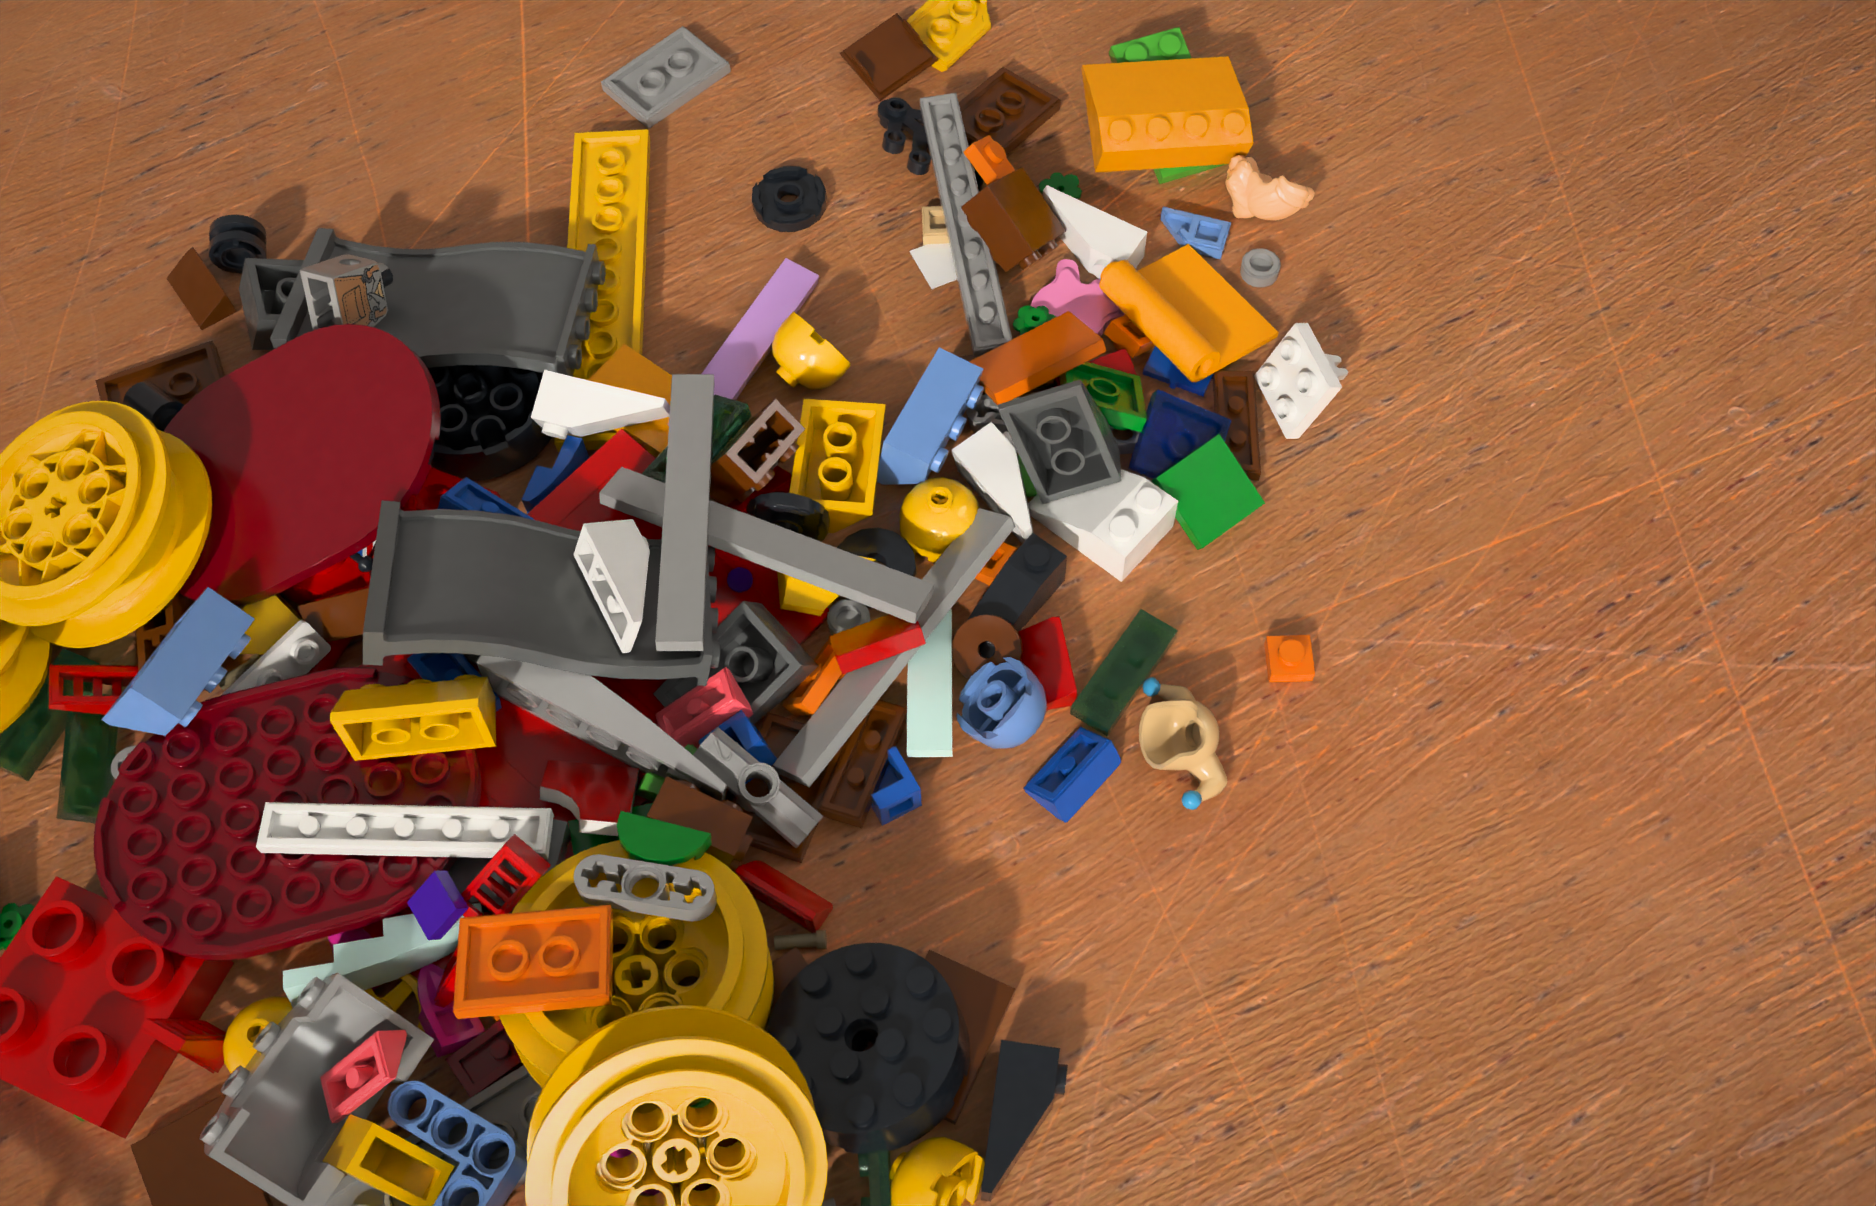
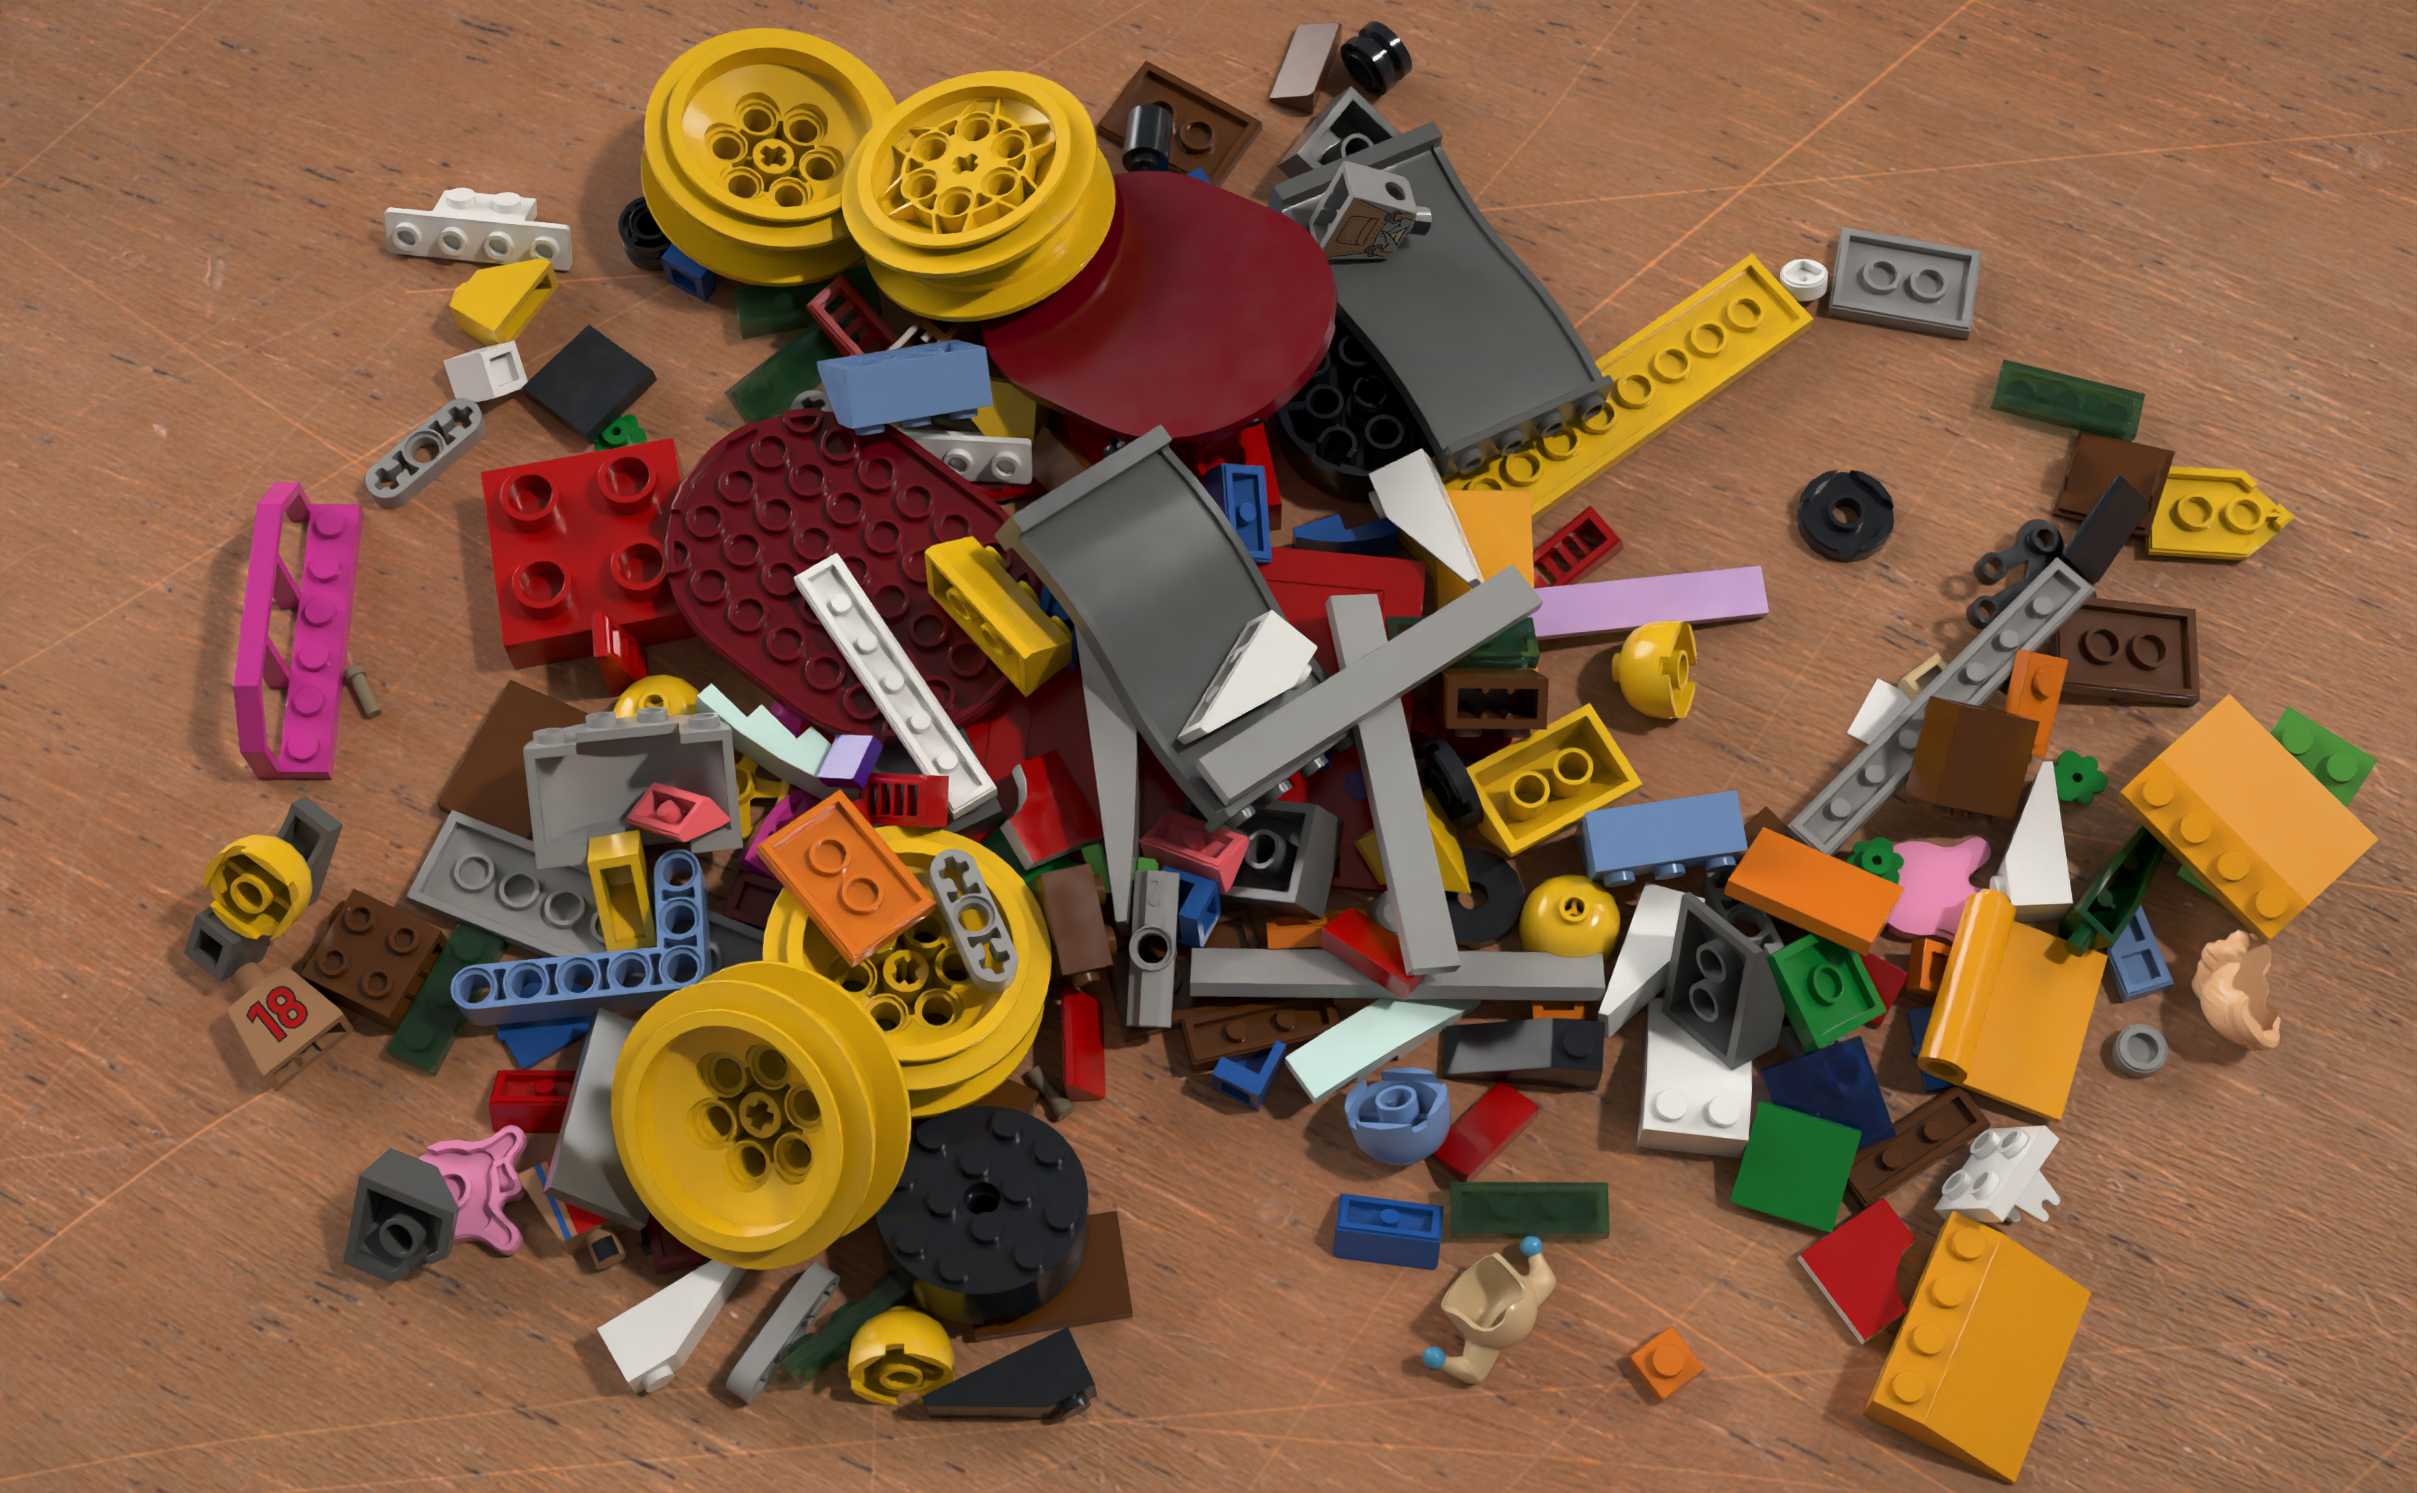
camera: 55 degrees right, 5 degrees up
(616, 118) = (1804, 279): none -> white tile
(660, 841) = (1024, 902): green tile -> none
(684, 330) = (1594, 559): none -> red slope
(816, 45) = (2067, 401): none -> clear green plate
(915, 68) = (2105, 530): none -> black slope
(984, 628) = (1476, 1055): reddish brown piece -> none
(1154, 214) = (2112, 895): none -> dark green piece
(1300, 505) = (1859, 1269): none -> red tile
(1395, 472) = (1978, 1348): none -> light orange slope

